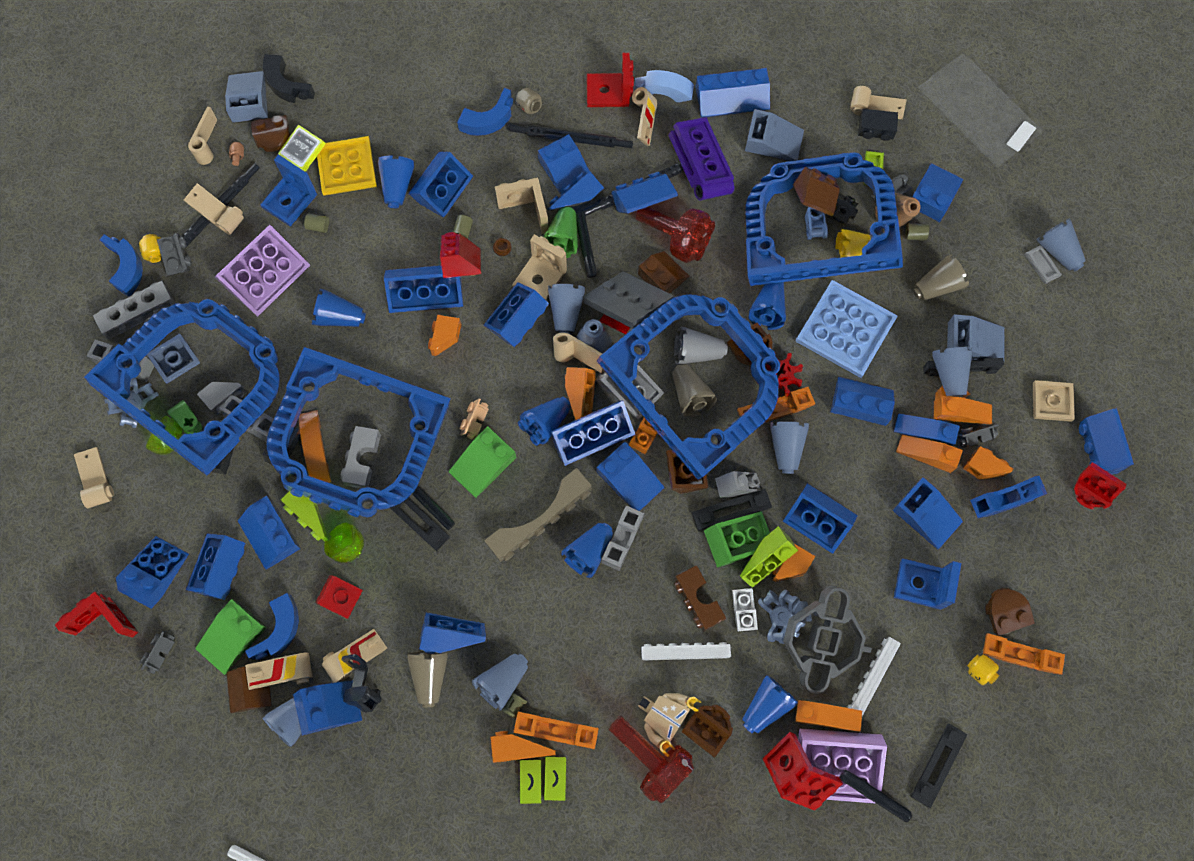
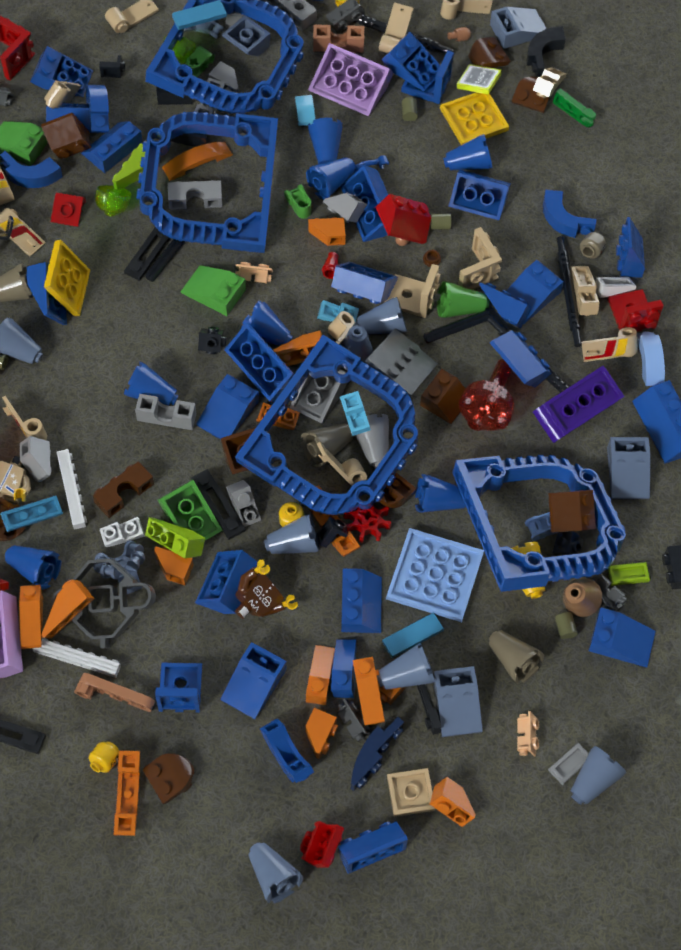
camera: 75 degrees right, 10 degrees down
(144, 396) = (199, 14): none -> dark azure tile
(164, 514) = (112, 69): none -> black bracket
(194, 573) = (60, 93): none -> tan door
(211, 255) = (351, 40): none -> nougat arch
(220, 532) = (99, 108): none -> blue arch
(249, 577) = (66, 135): none -> reddish brown slope
(263, 203) = (412, 62): none -> blue slope
(285, 323) = (305, 110): none -> medium azure slope
(331, 84) = (548, 82): none -> slope
(334, 105) = (527, 97): none -> reddish brown slope
(364, 73) = (574, 108): none -> green hinge
(373, 265) = (381, 161): none -> blue piece
(381, 317) = (329, 176): none -> blue cone
(398, 356) = (299, 201): none -> bright green piece
(421, 310) = (346, 205): none -> light grey slope
(440, 609) = (67, 278): none -> yellow plate
(487, 342) = (329, 266): none -> red cone
(507, 540) = (203, 362): dark tan arch -> none
(541, 350) = (329, 311): none -> medium azure slope
(547, 476) = (211, 340): none -> black brick
(549, 70) = (630, 251): none -> blue slope
(577, 98) = (613, 285): none -> white slope
(577, 120) = (585, 290): none -> tan slope
(614, 677) = (30, 427): none -> tan door
(646, 681) = (36, 457): none -> light grey slope
(691, 348) = (355, 413): none -> medium azure slope
(710, 697) = (31, 513): none -> dark azure tile
(727, 377) = (350, 470): none -> tan door
(758, 444) = (290, 512): none -> yellow head
(790, 407) = (330, 530): none -> black bracket
(826, 670) = (67, 605): none -> orange slope
(845, 486) = (259, 594): none -> reddish brown torso
(901, 363) = (412, 635): none -> dark azure tile
(905, 670) = (91, 683): none -> nougat beam
(1005, 288) = (529, 743): none -> light nougat hinge
(1020, 429) = (369, 758): none -> dark blue slope
(1070, 367) = (452, 802): none -> orange slope
(1117, 535) = (273, 873): none -> sand blue cone

